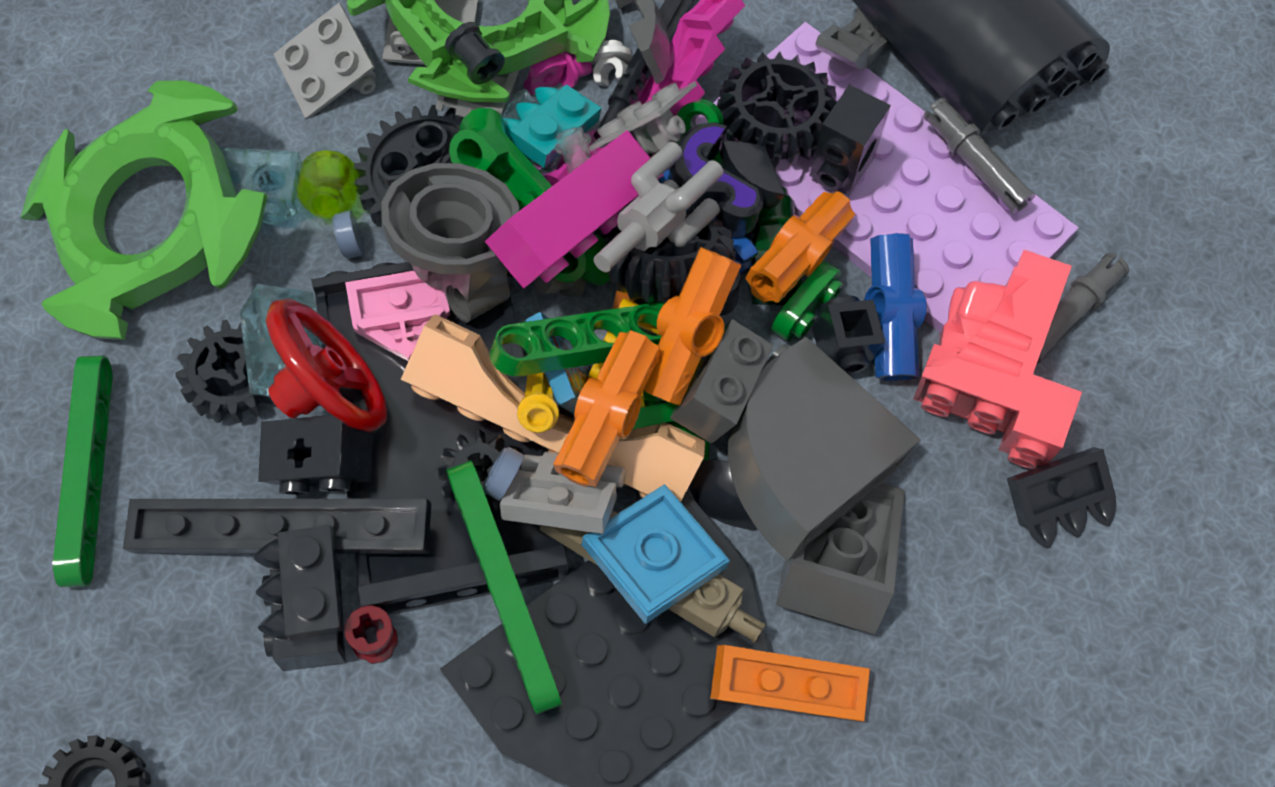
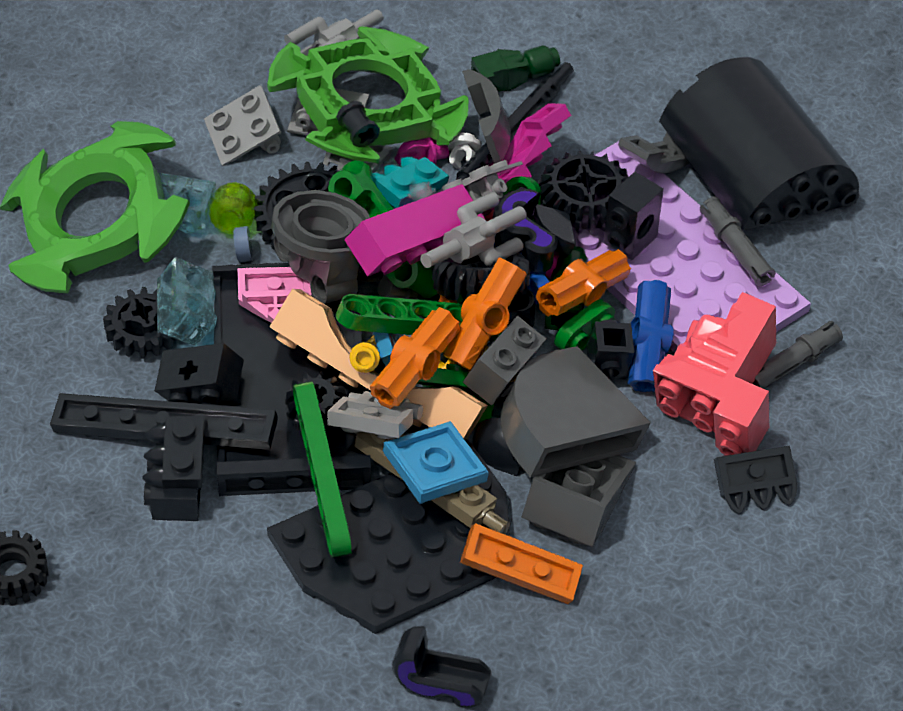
camera: 10 degrees right, 15 degrees down
(83, 472) = (27, 373): green beam -> none
(317, 374) = (212, 314): red piece -> none
(356, 634) = (227, 498): dark red bush -> none
(502, 473) = (333, 393): sand blue tile -> none

